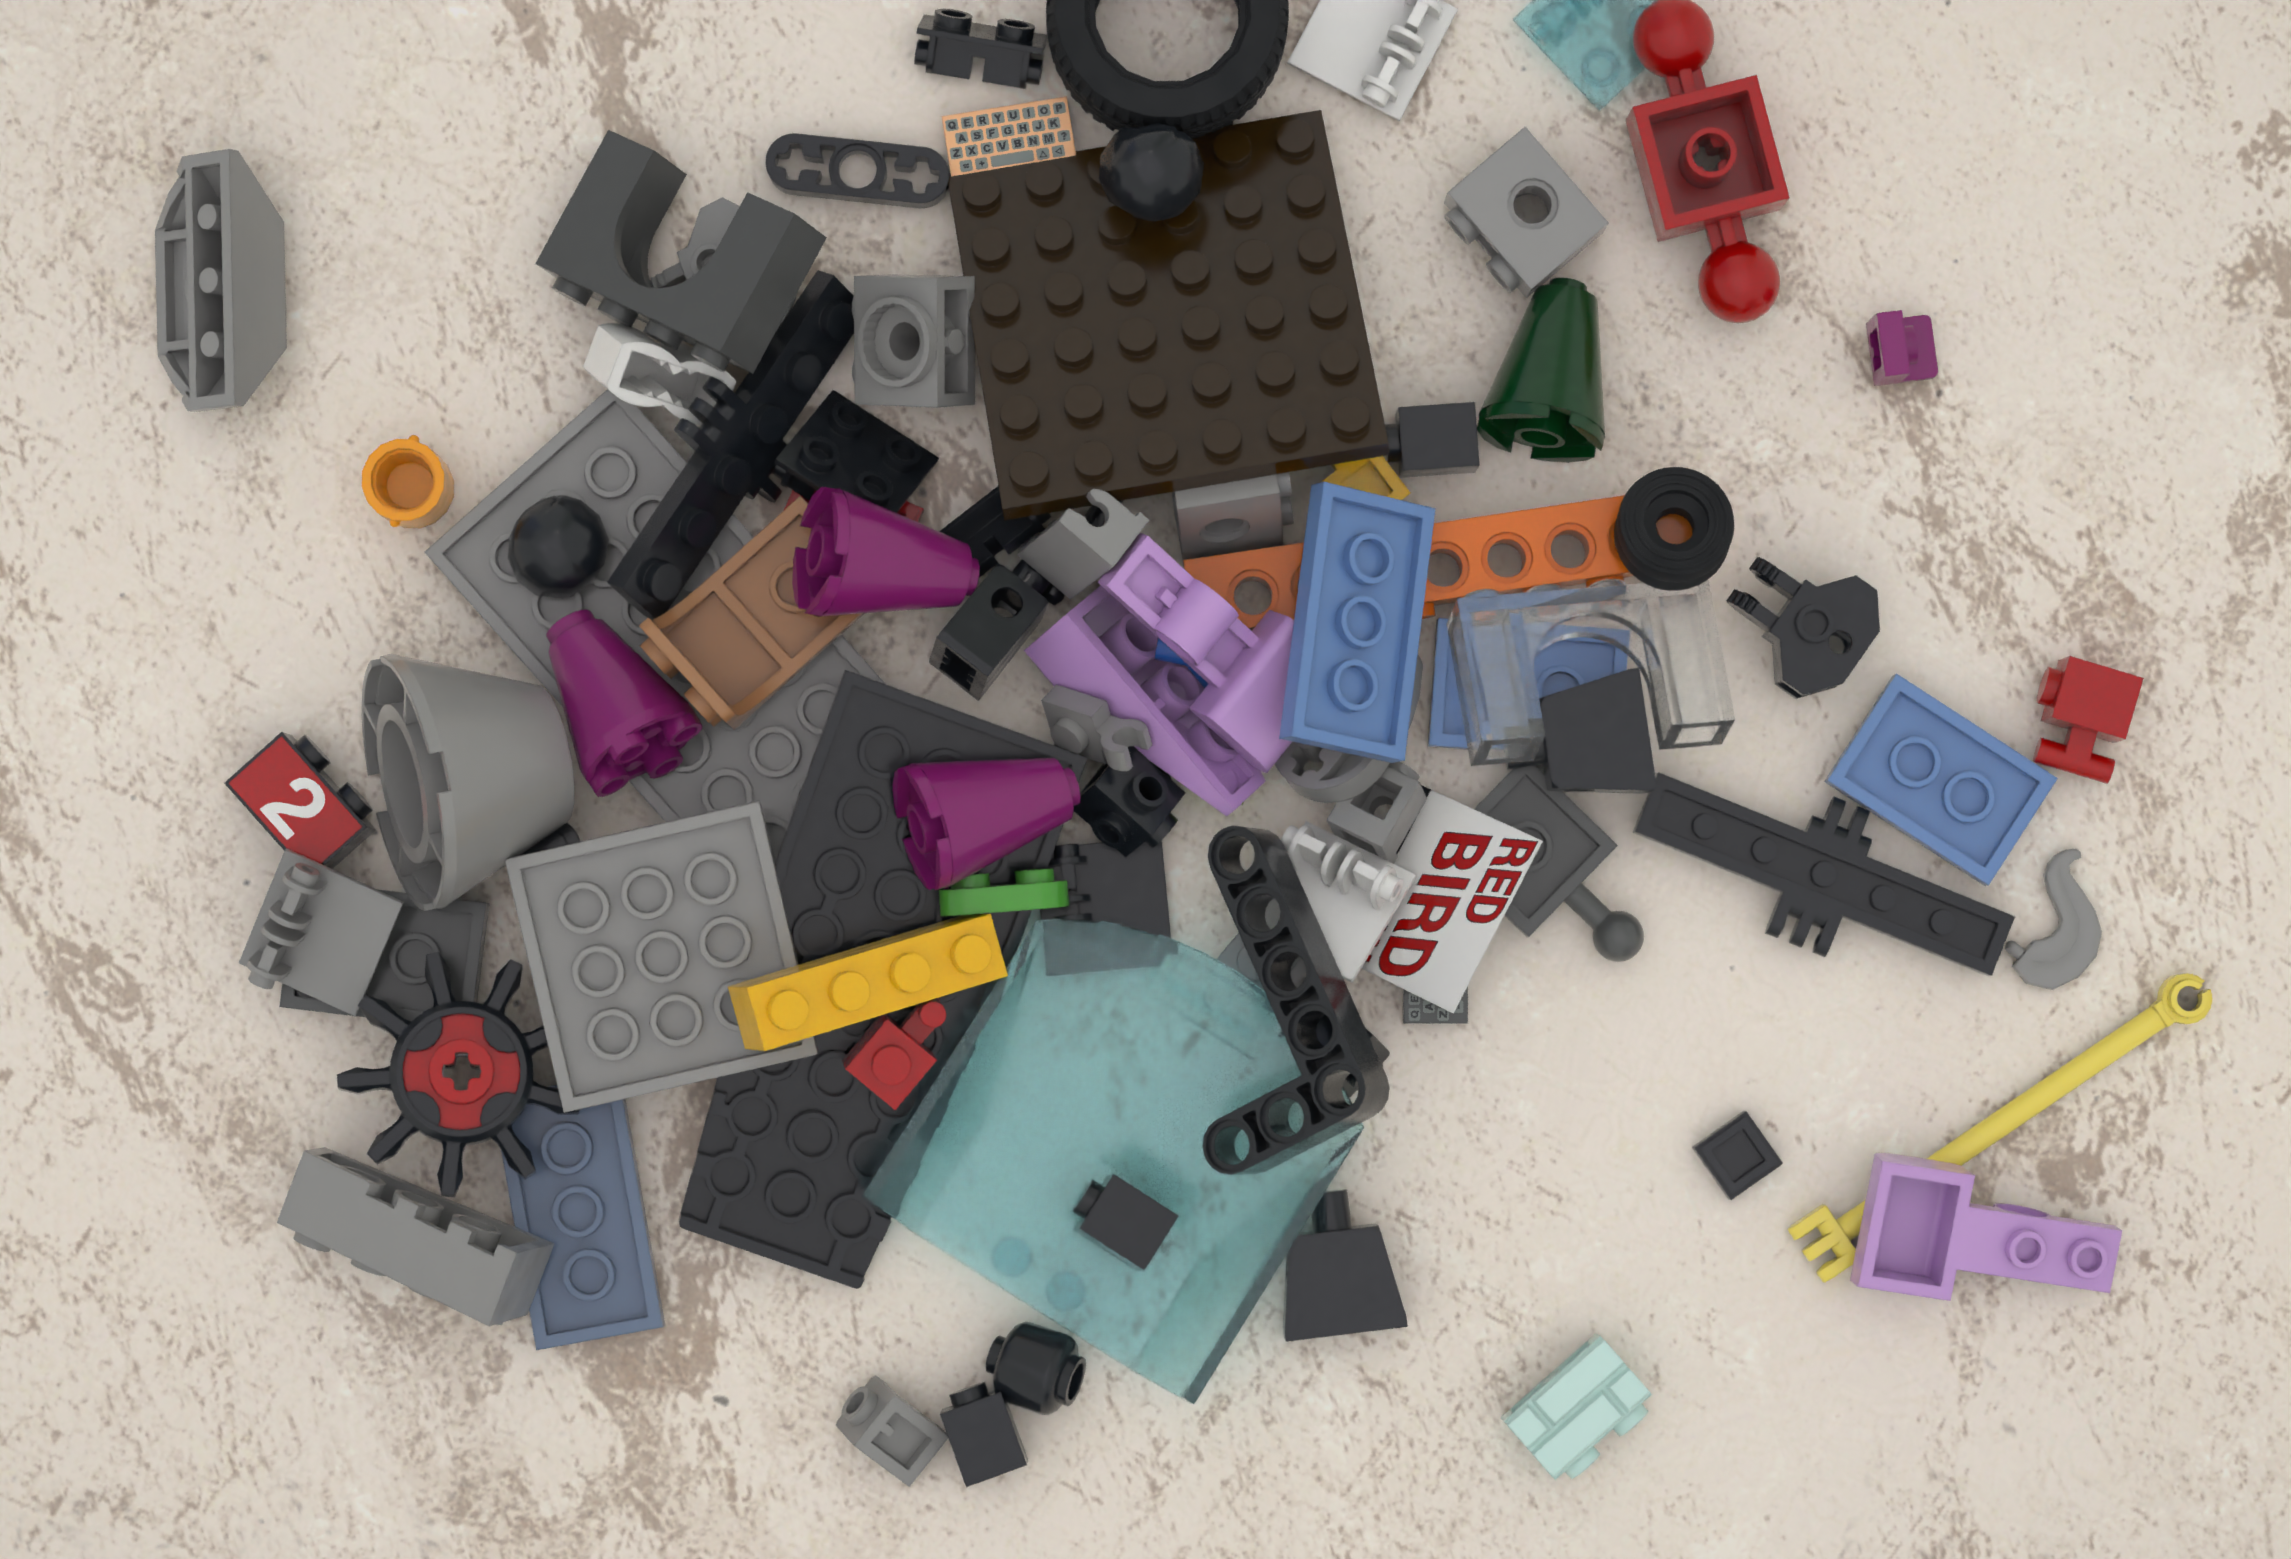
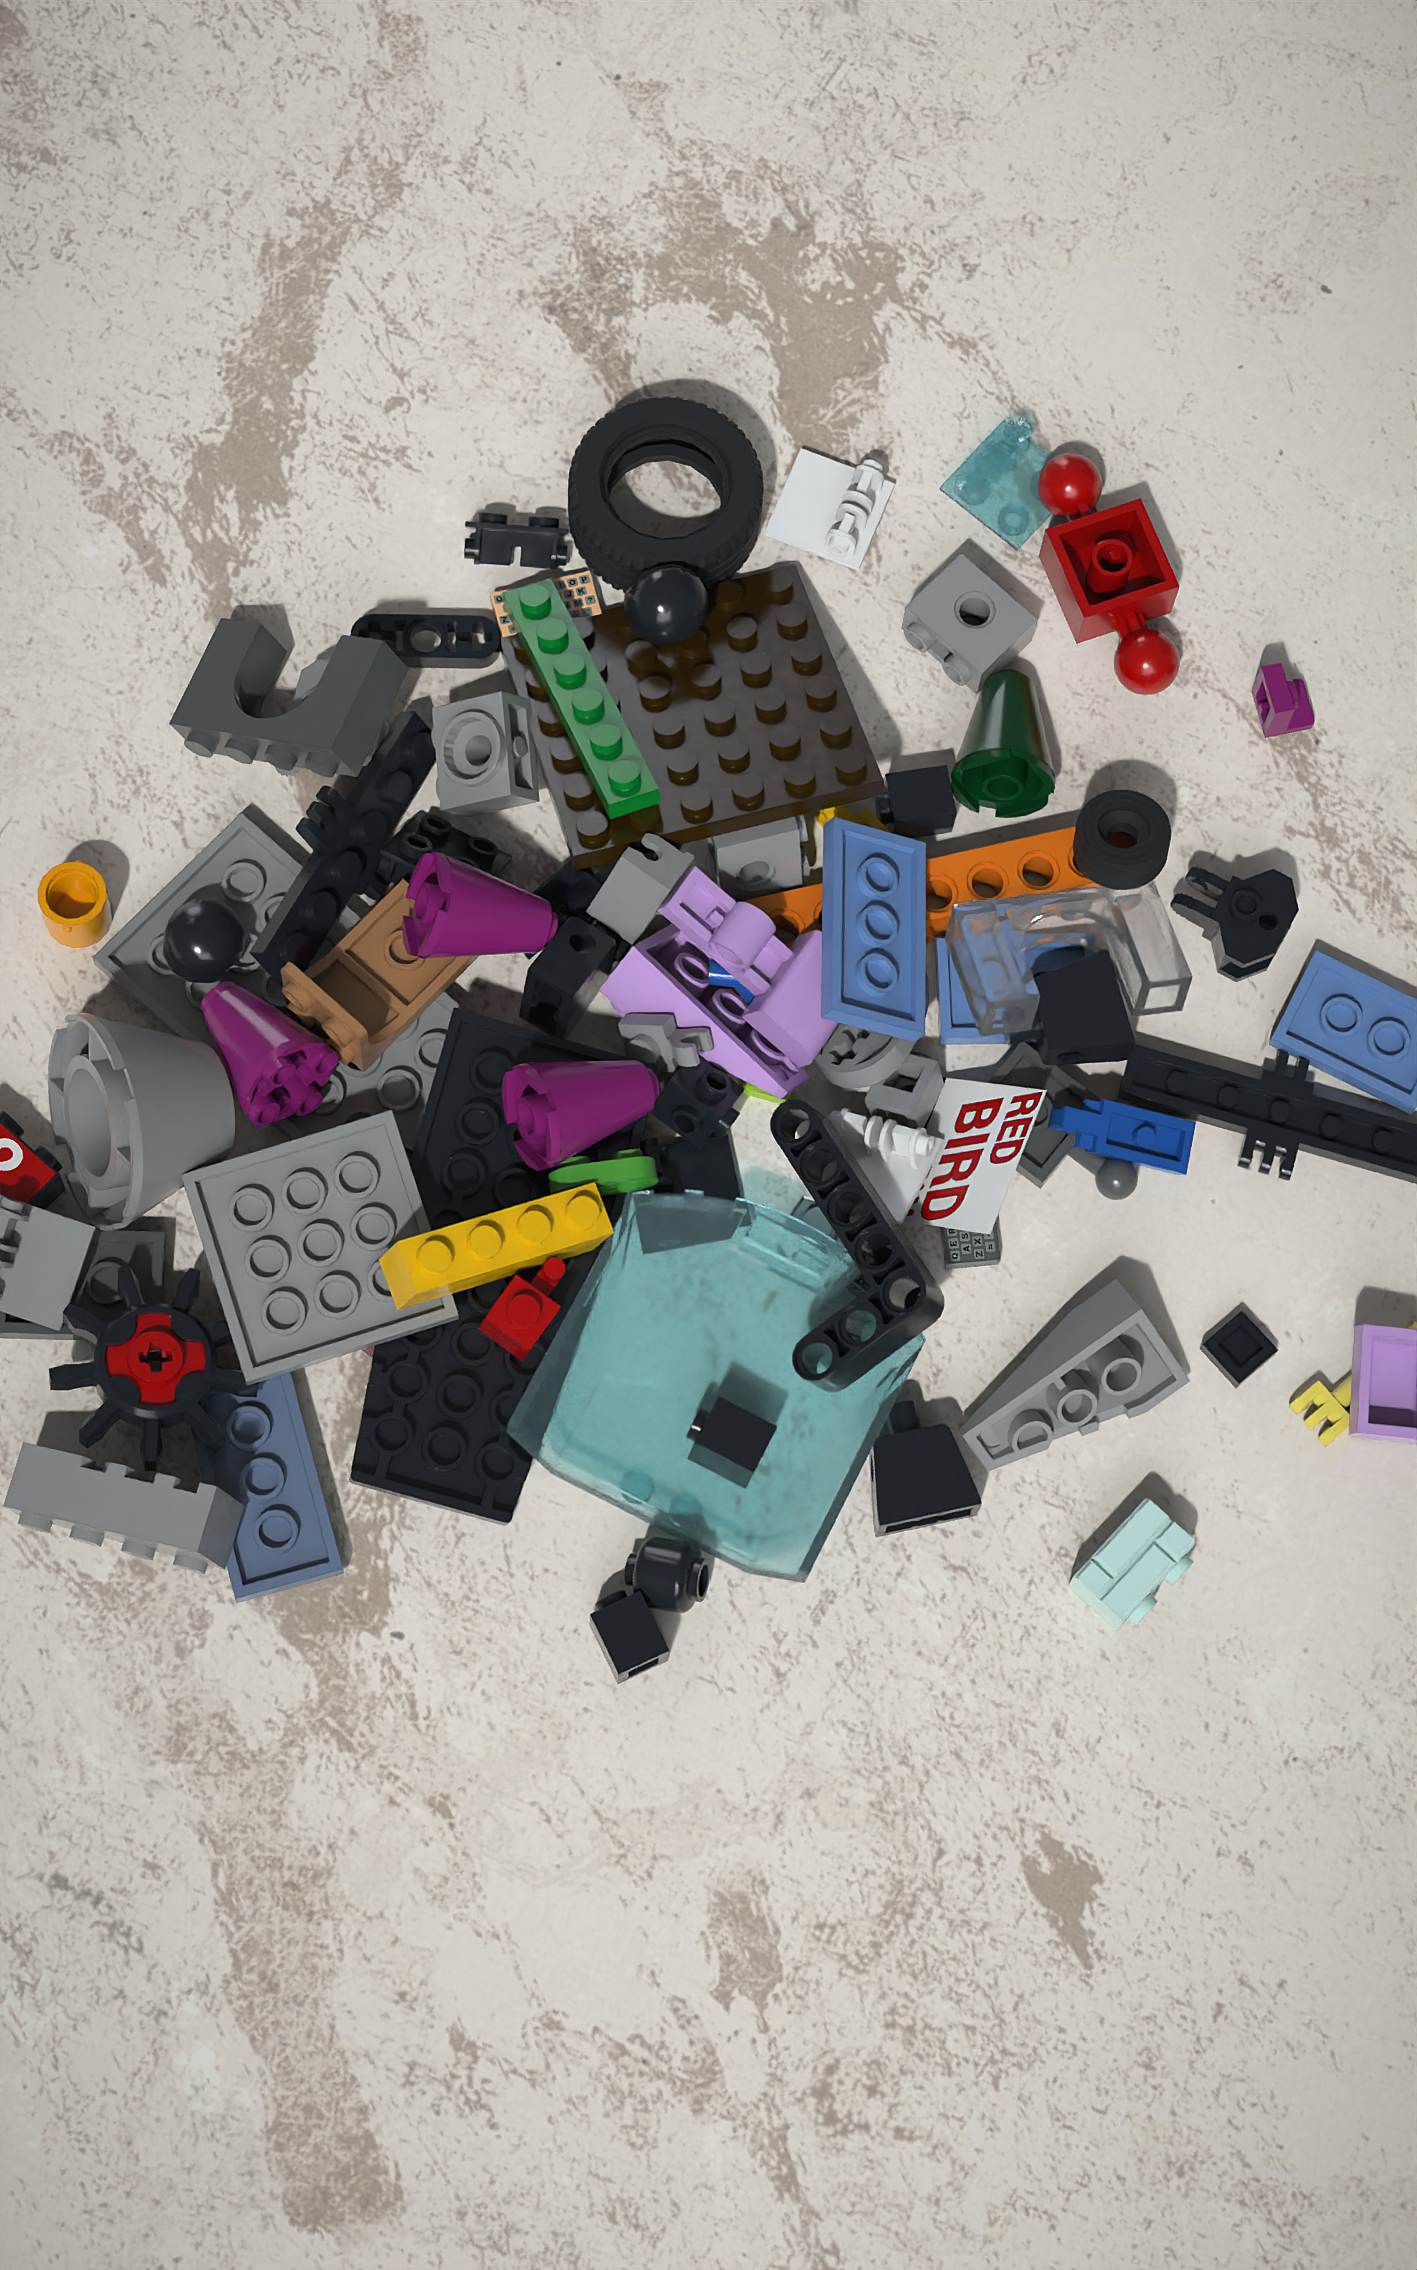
camera: 10 degrees left, 15 degrees down
(649, 371) = (268, 791): white brick -> none
(890, 1430) = (548, 1640): light grey bracket -> none
(1034, 287) = (581, 699): none -> green plate
(1557, 1165) = (1086, 1371): none -> light grey wedge
(1637, 888) = (1128, 1134): none -> blue hinge

